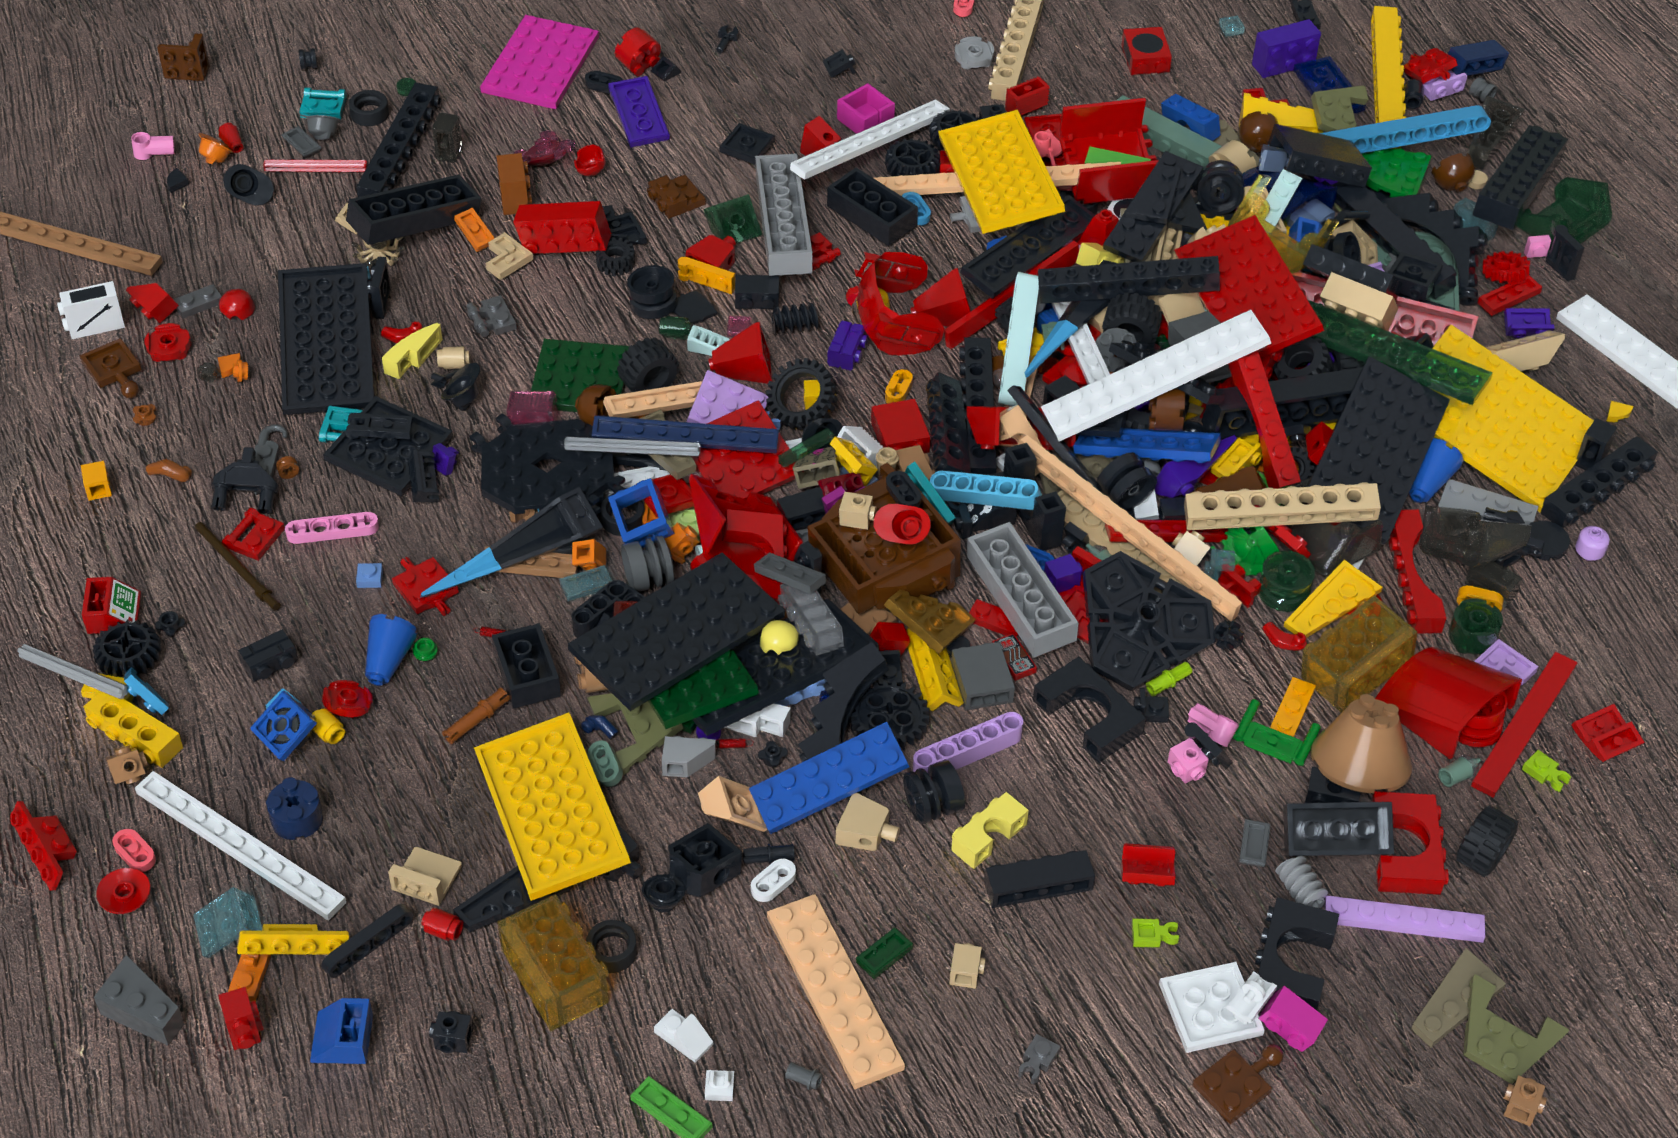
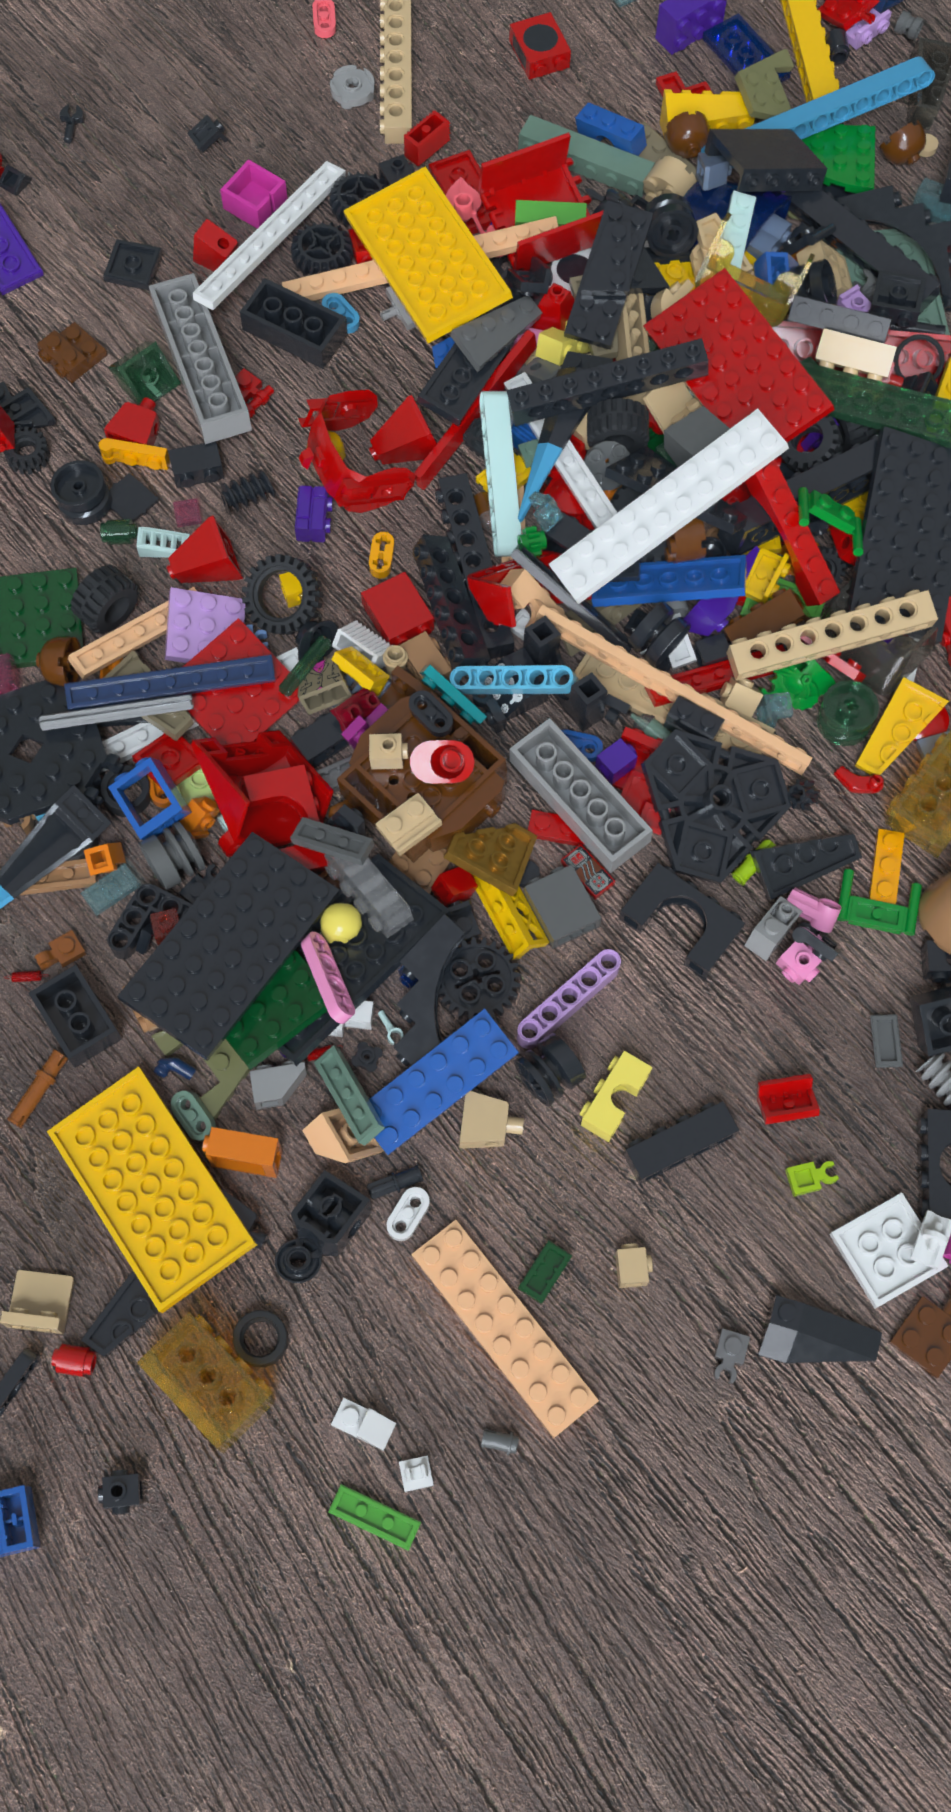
camera: 15 degrees left, 20 degrees up
(528, 617) = (63, 950): none -> dark orange plate
(641, 795) = (243, 1152): none -> orange window
(747, 772) = (349, 1095): none -> sand green plate
(755, 670) = (328, 977): none -> bright pink beam
(799, 736) = (389, 1027): none -> light aqua hand
(860, 570) = (408, 824): none -> tan plate
(1034, 390) = (533, 540): none -> green gear
(1038, 236) = (490, 333): none -> dark grey wing
(1050, 369) = (546, 510): none -> clear light blue bracket
(1093, 204) = (532, 281): none -> black bracket
(1117, 1055) = (808, 1334): none -> black wedge
(1142, 550) = (693, 719): none -> black brick
(1153, 708) = (744, 901): black bracket -> none
(1169, 730) = (773, 928): none -> light grey slope
(1213, 685) = (798, 863): none -> black wing
(1236, 585) = (797, 732): red hips -> none
(1305, 412) = (833, 513): none -> green plate
(1426, 306) = (918, 337): none -> black tyre

